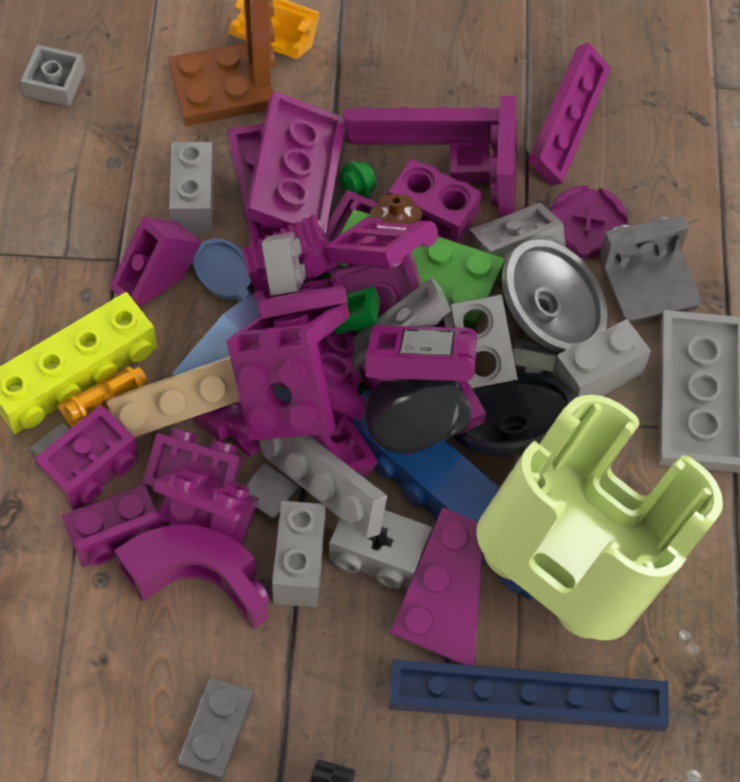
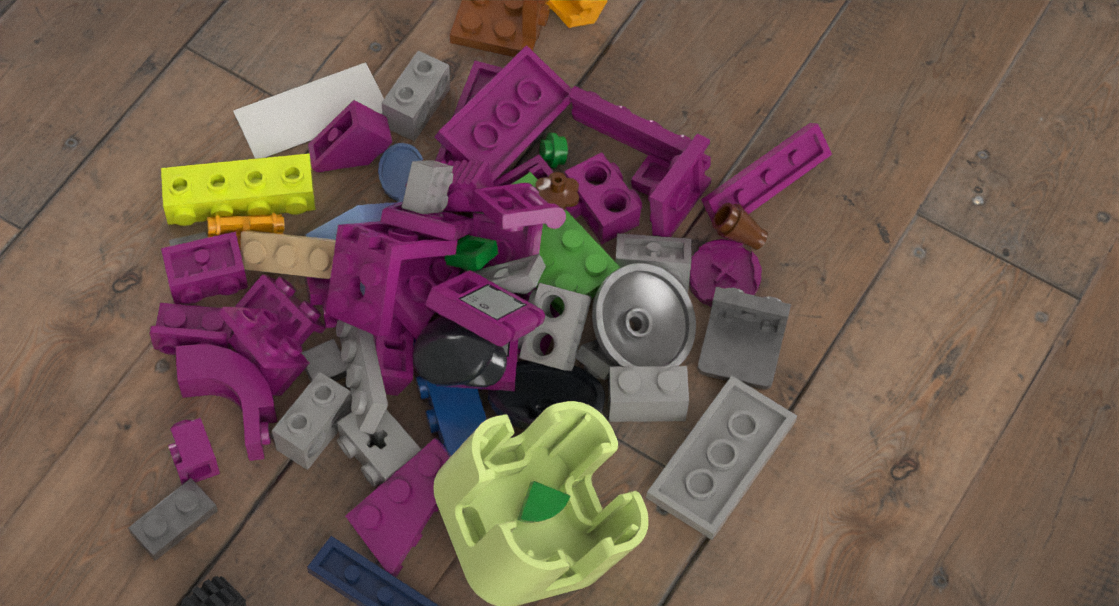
camera: 30 degrees right, 0 degrees up
(84, 256) = (305, 110): none -> white sticker
(195, 648) = (192, 451): none -> magenta brick
(576, 168) = (737, 225): none -> reddish brown cone
(590, 516) = (542, 503): none -> green tile

